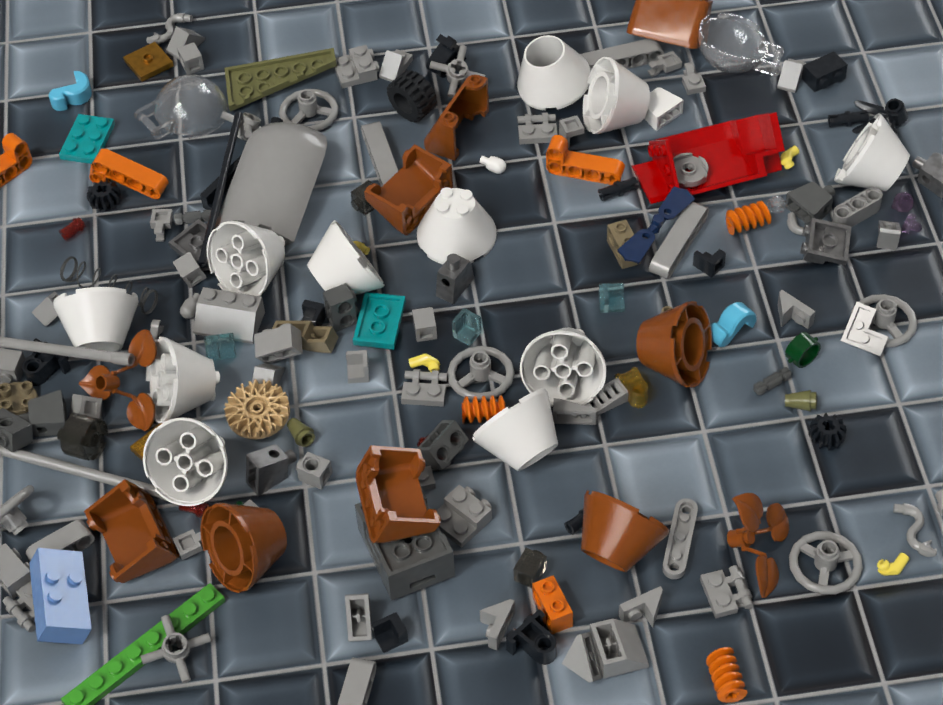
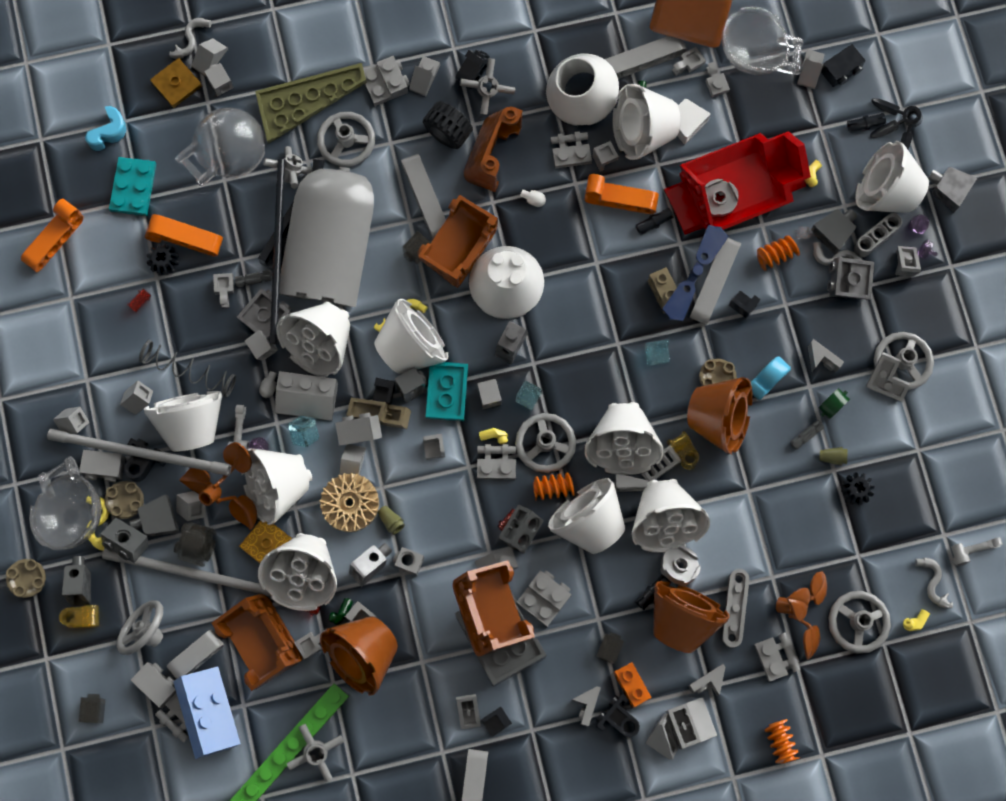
camera: 10 degrees left, 25 degrees up
(608, 441) = (668, 517): none -> white cone
(612, 485) = (673, 572): none -> light grey plate

